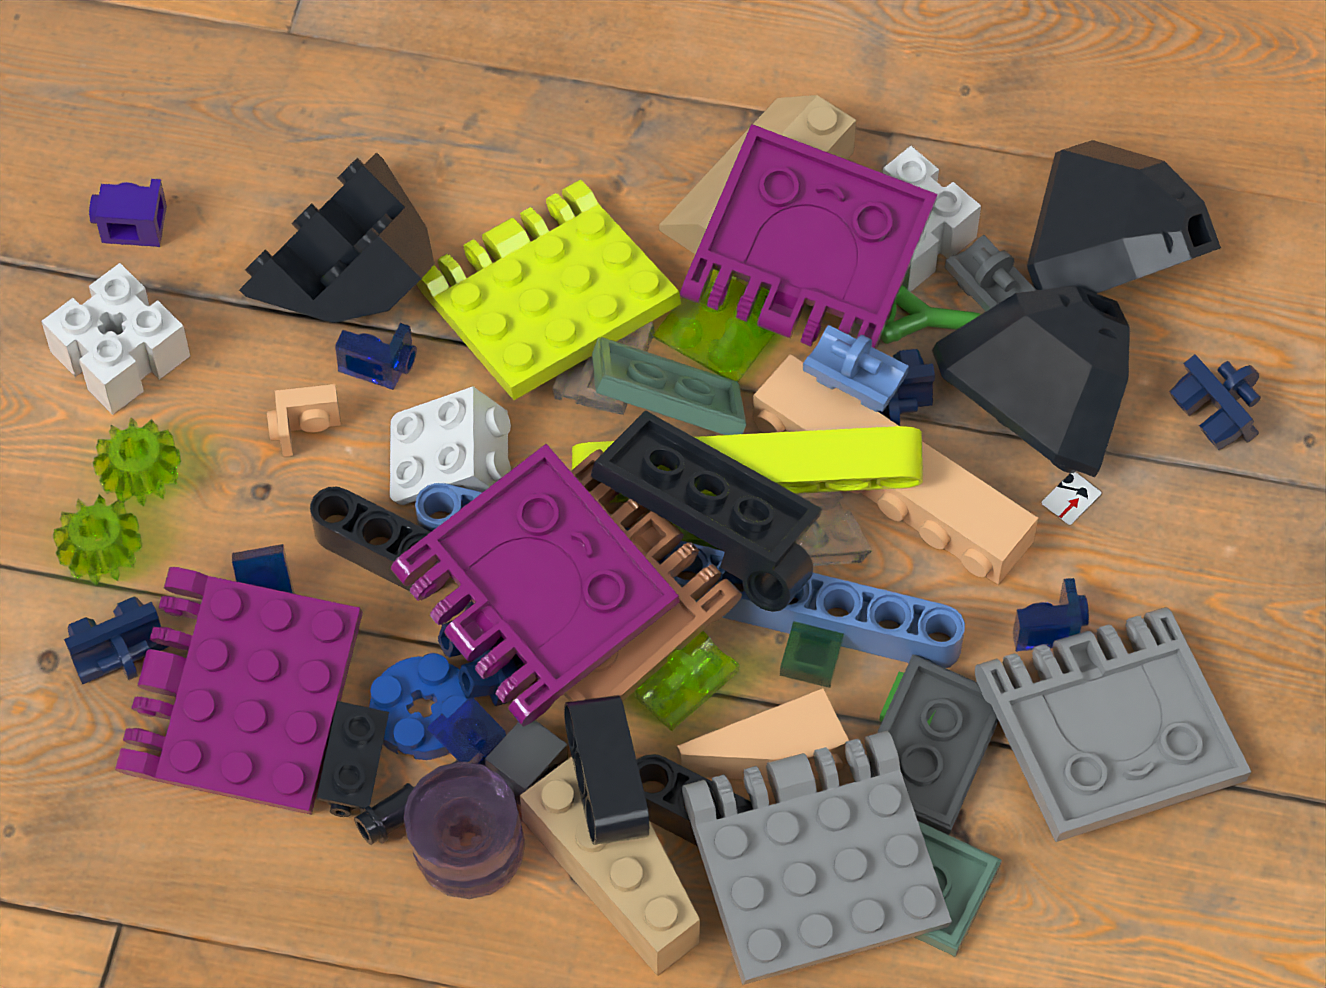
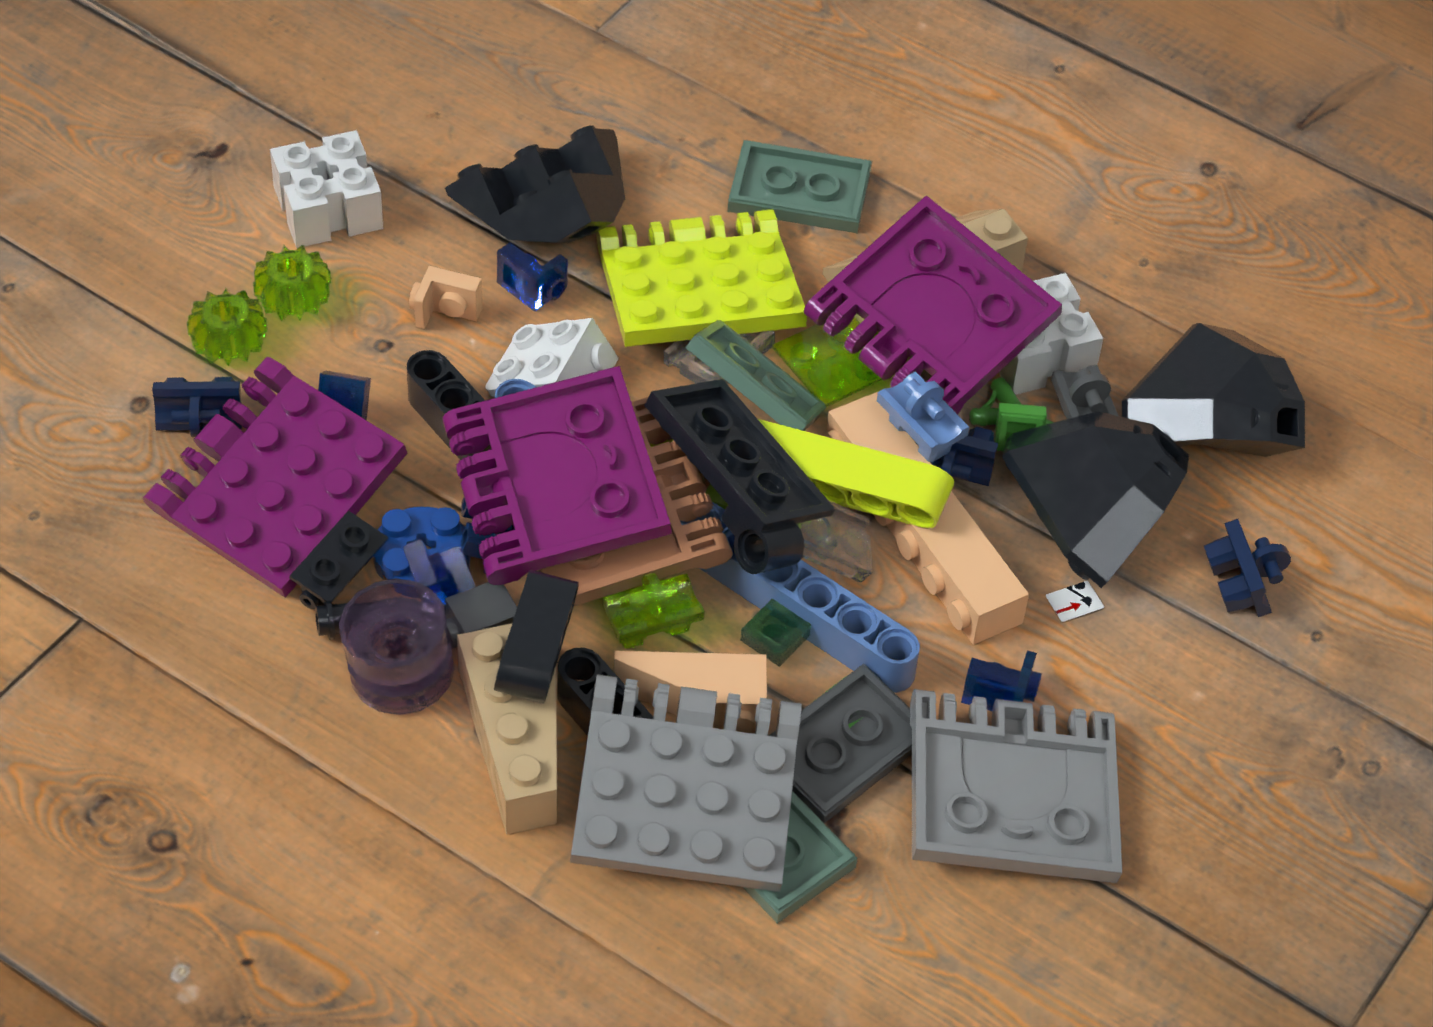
camera: 20 degrees right, 10 degrees down
(129, 213) = (391, 107): dark purple brick -> none
(590, 138) = (800, 185): none -> sand green tile
(934, 326) = (1016, 418): none -> bright green tile

